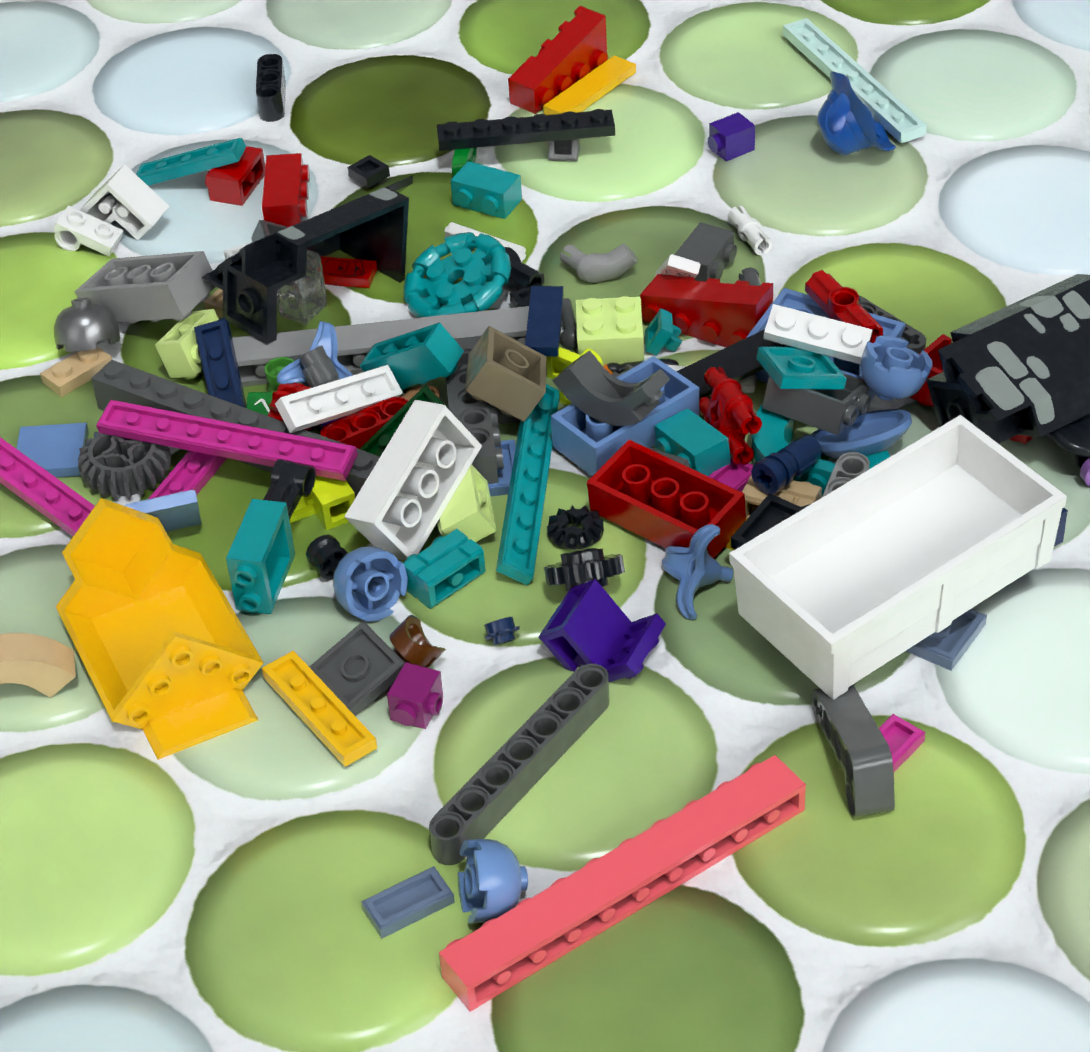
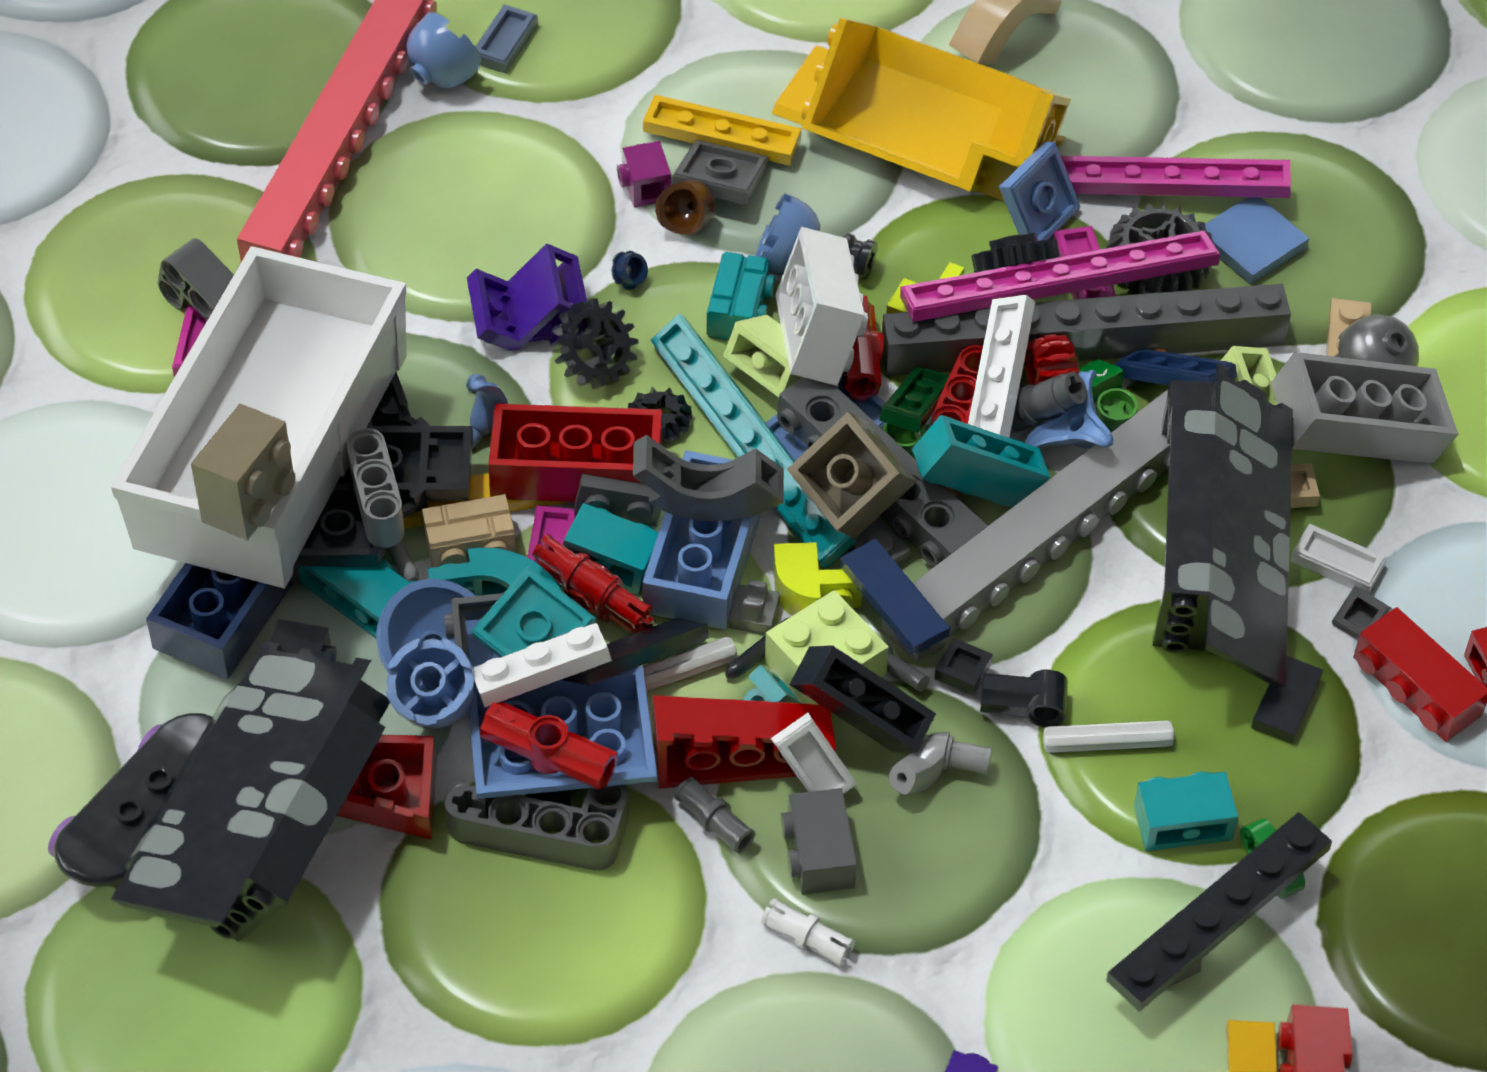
camera: 140 degrees right, 10 degrees up
(230, 482) = (1015, 251): none -> black gear
(261, 556) = (903, 202): teal window -> none
(290, 483) = (938, 250): black piece -> none
(368, 171) = (1364, 770): black plate -> none
(472, 294) = (1036, 616): teal plate -> none
(519, 763) = (503, 167): dark grey beam -> none
(623, 272) = (862, 698): none -> black brick
(780, 468) = (471, 533): dark blue axle -> none
(969, 413) = (243, 472): none -> dark tan brick

